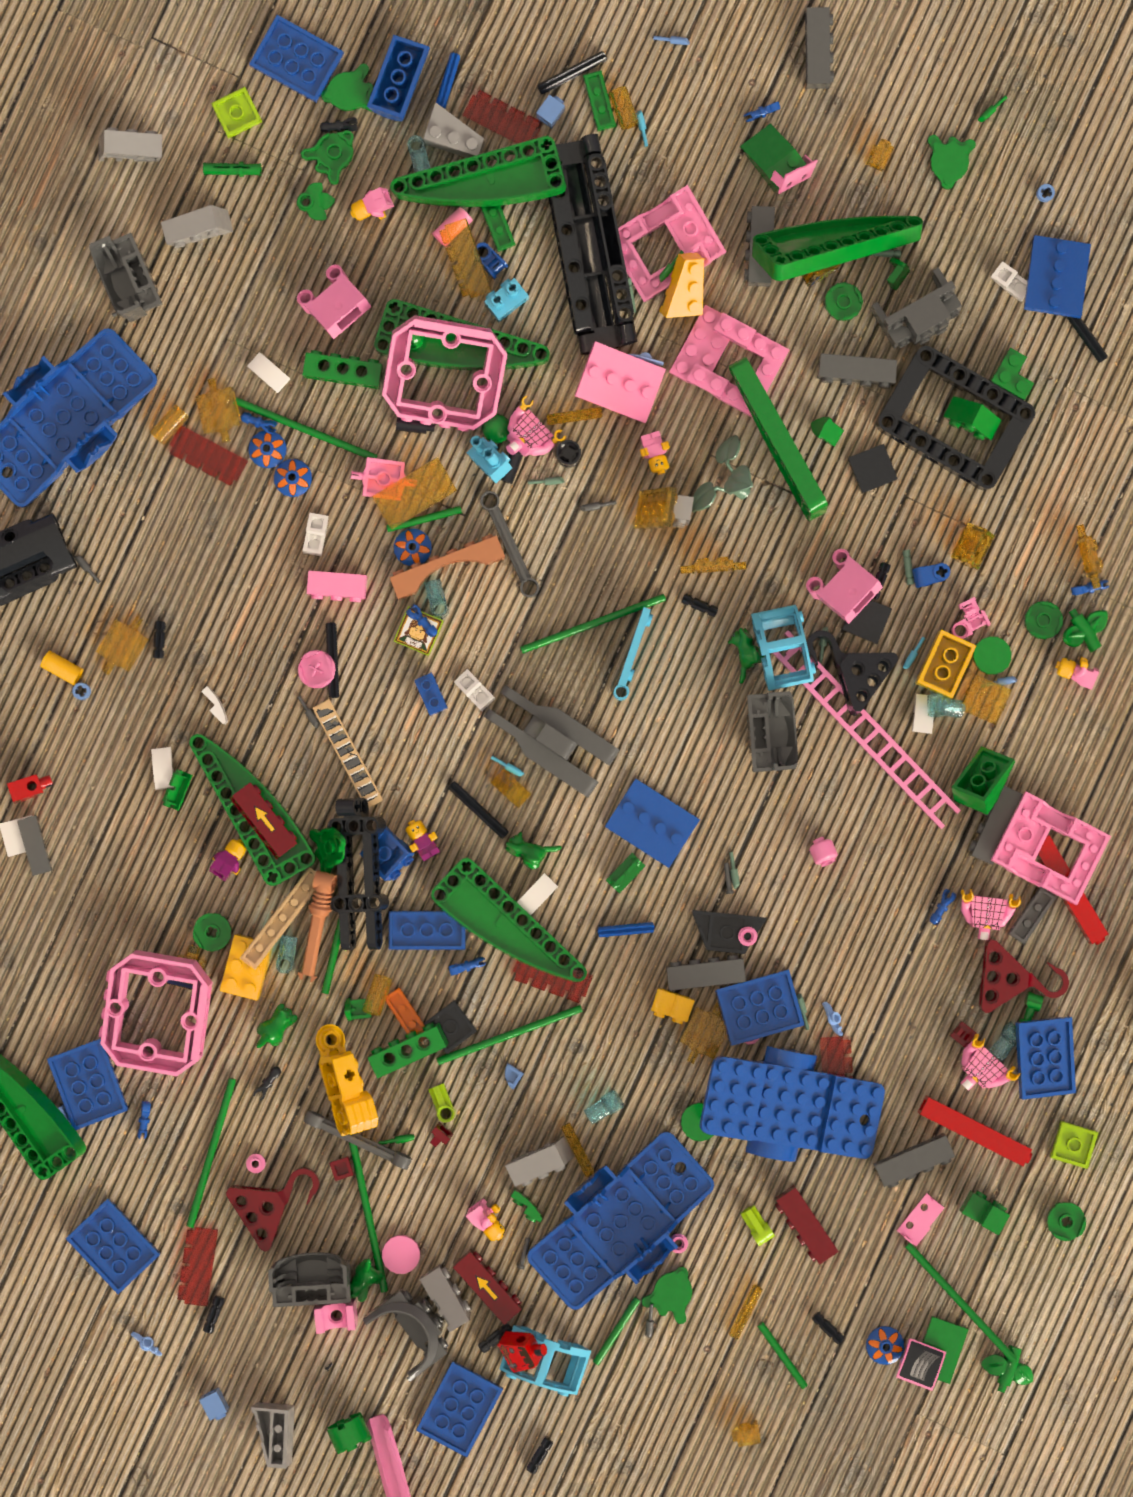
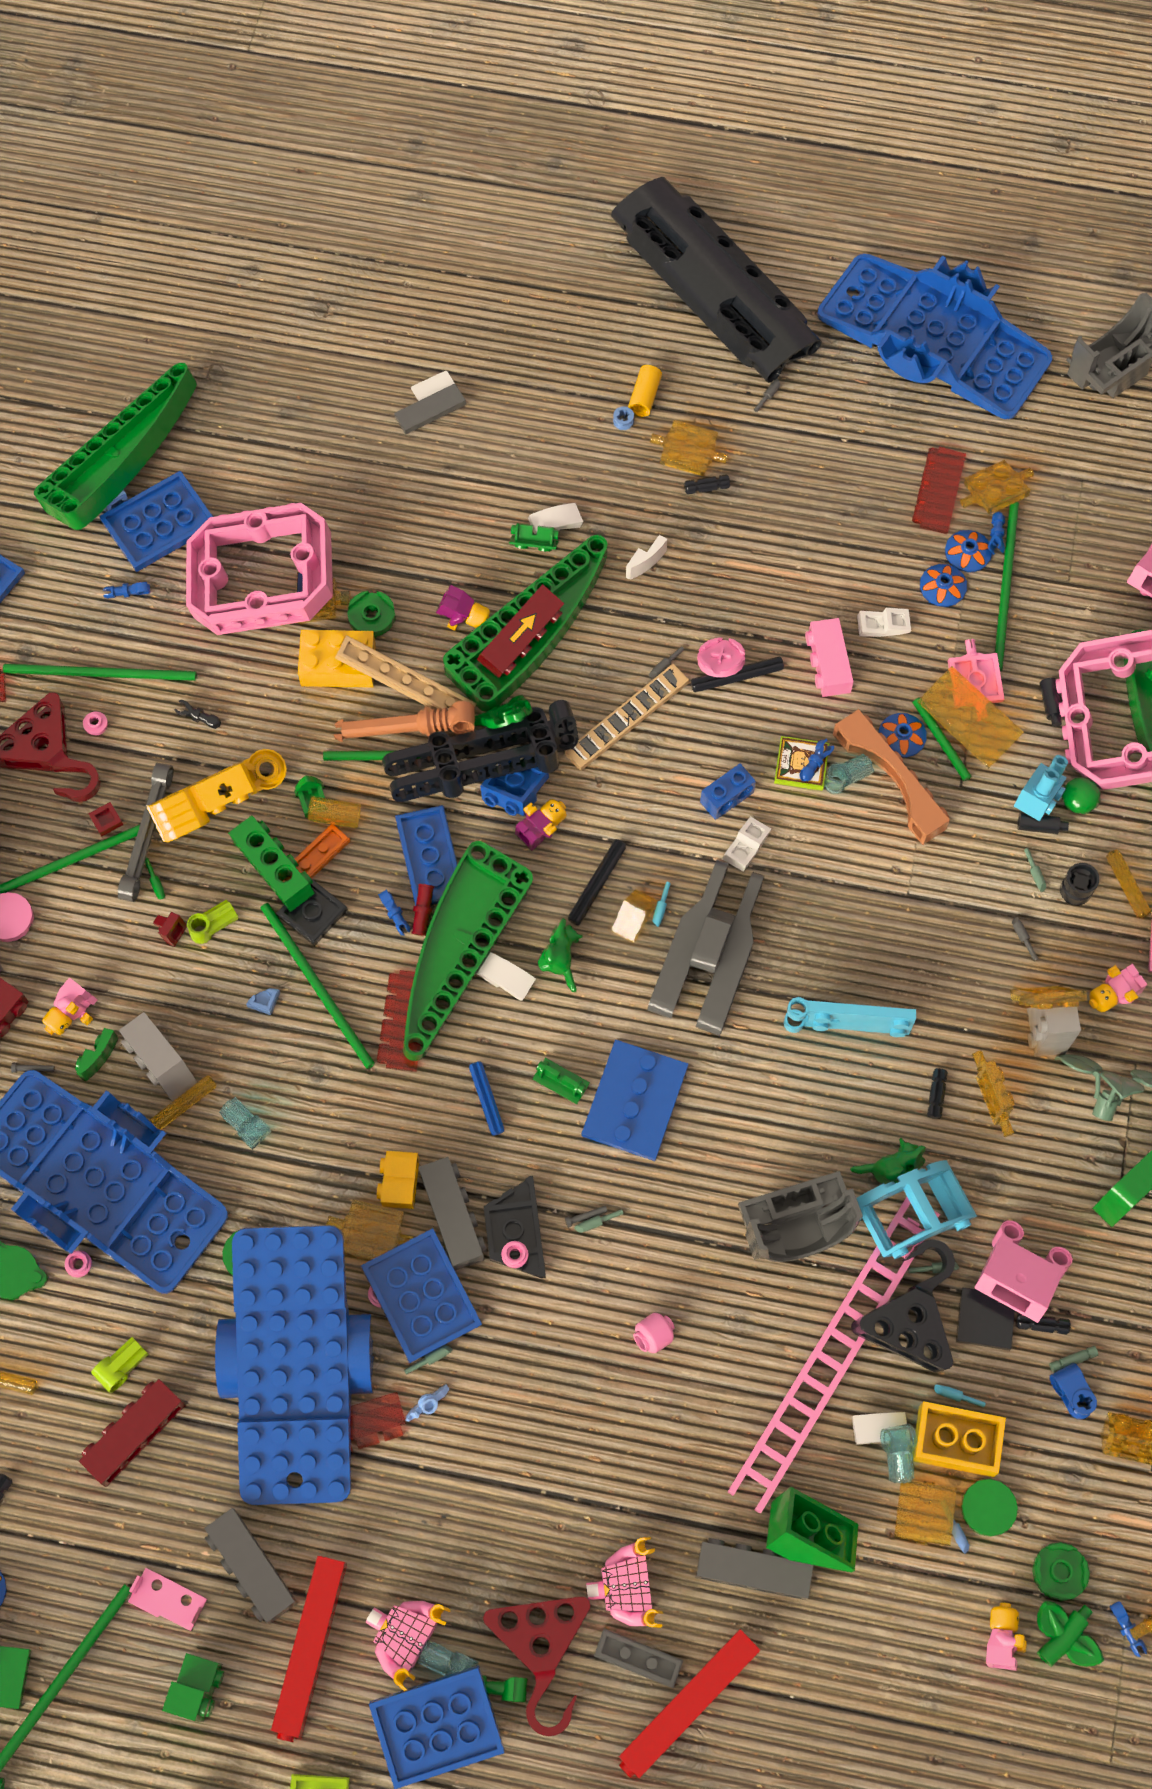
camera: 75 degrees right, 20 degrees down
(19, 788) = (495, 381): red torso -> none
(169, 424) = (962, 439): clear yellow pin -> none
(268, 372) = (1059, 529): white slope -> none
(273, 1029) = (266, 705): green animal -> none
(287, 951) = (363, 700): clear light blue piece -> none
(370, 380) = (1091, 573): green brick -> none
(471, 945) = (422, 909): none -> dark red pin
(509, 544) = (942, 843): dark grey piece -> none
(529, 434) = (1089, 829): bright pink torso -> none
(593, 623) = (870, 963): green piece -> none
(936, 917) = (601, 1516): blue piece -> none
(963, 1034) = (445, 1594): dark red tile -> none
(974, 618) = (1032, 1469): bright pink piece -> none
(1026, 836) = (752, 1613): bright pink piece -> none

